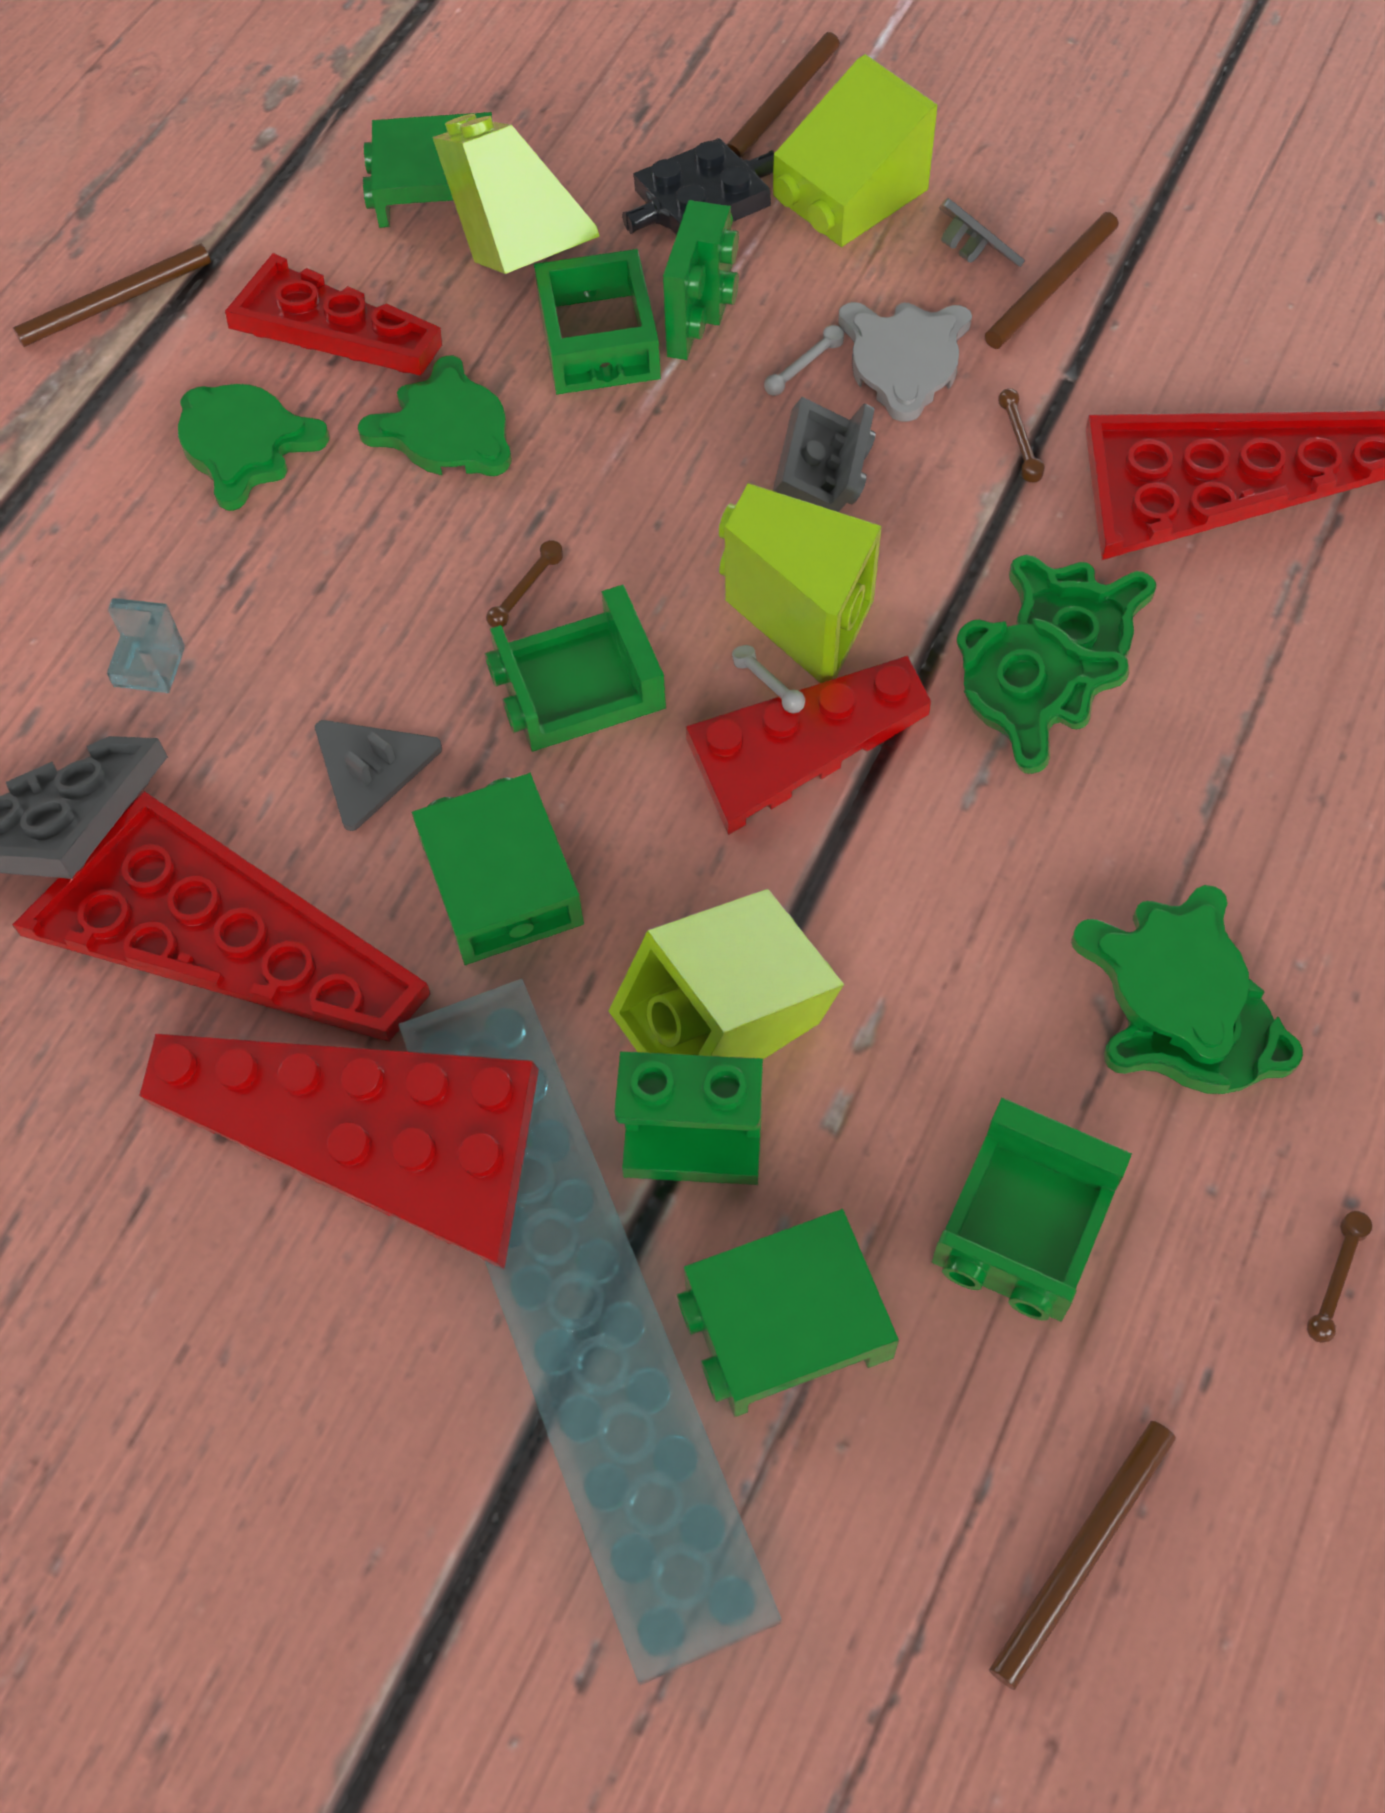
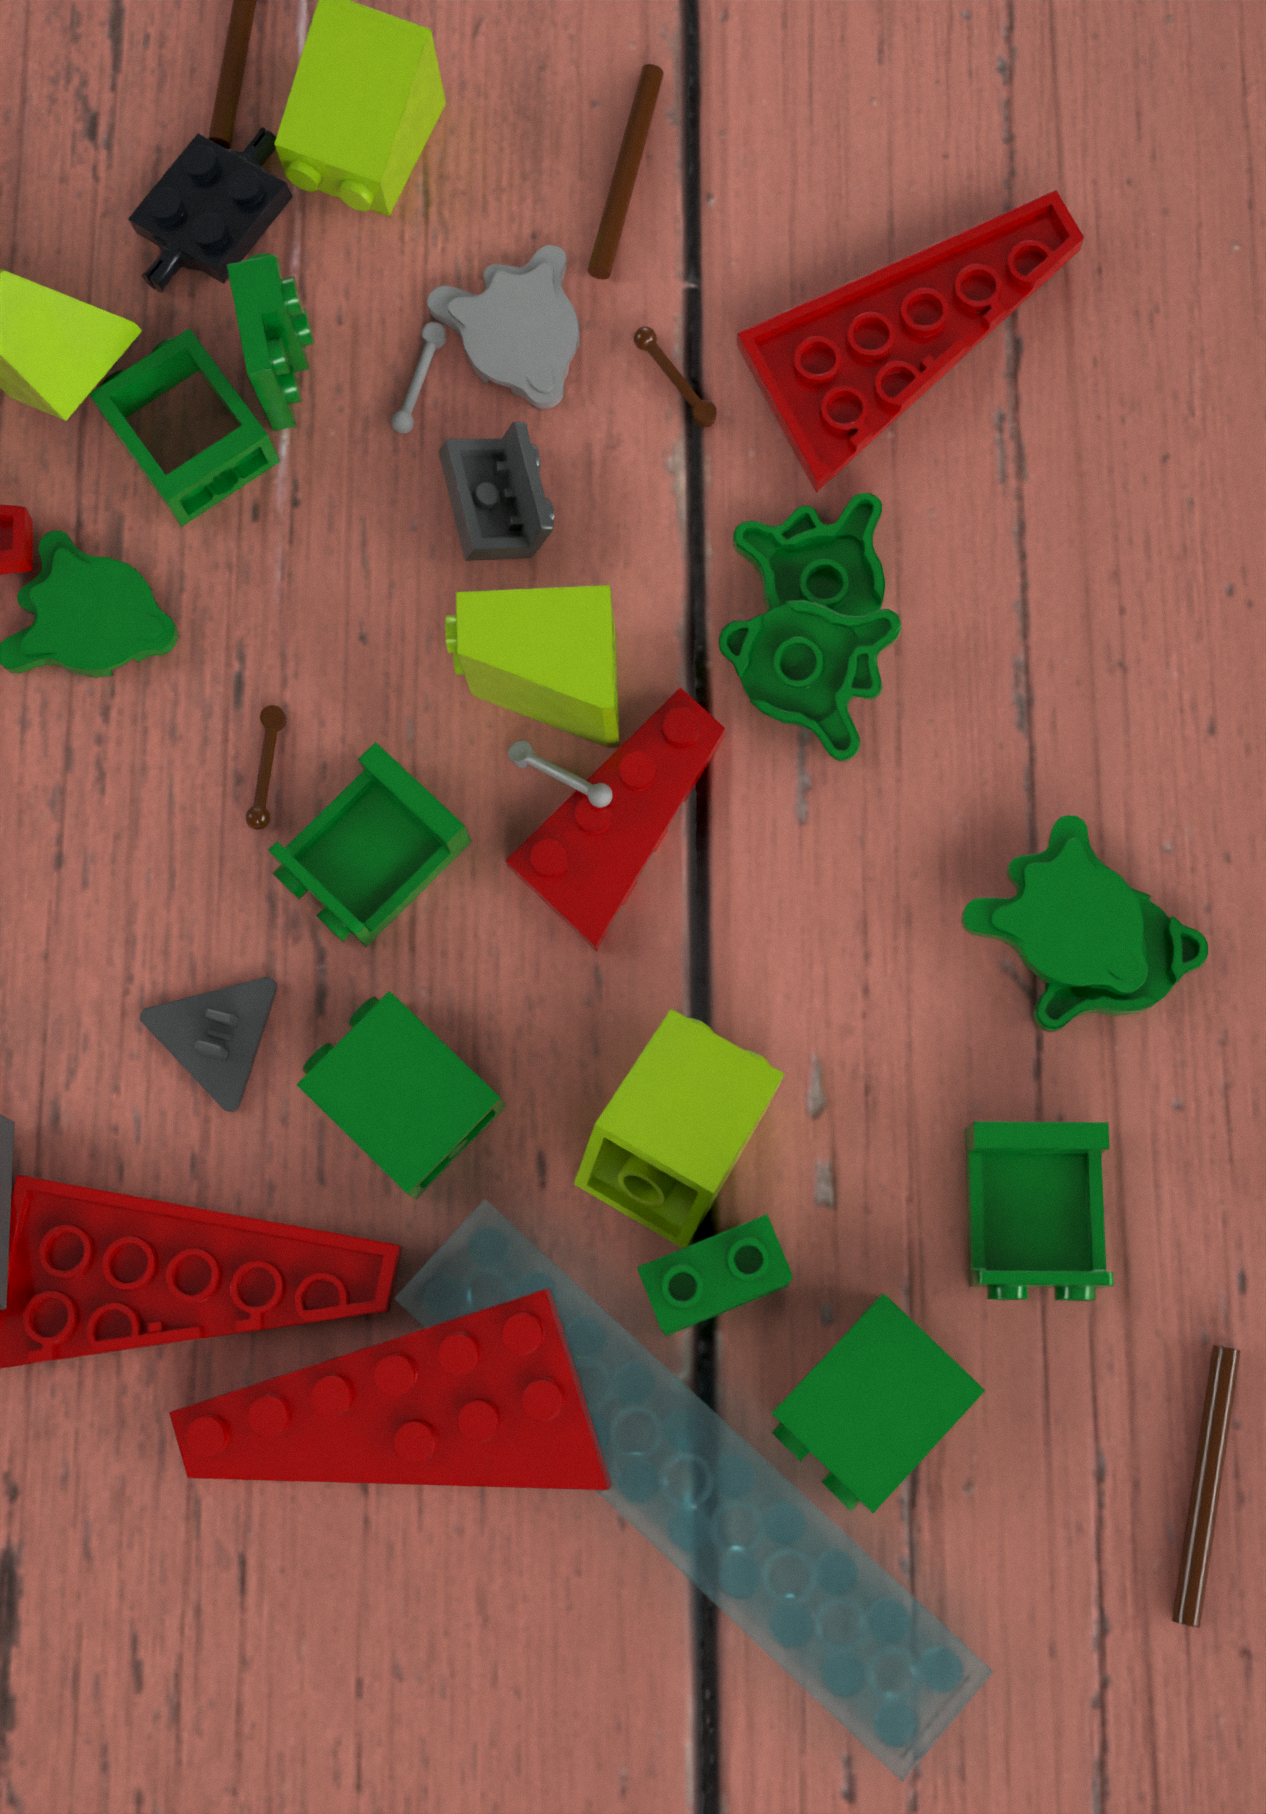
camera: 20 degrees left, 15 degrees up
(980, 236) = (511, 144): dark grey piece -> none

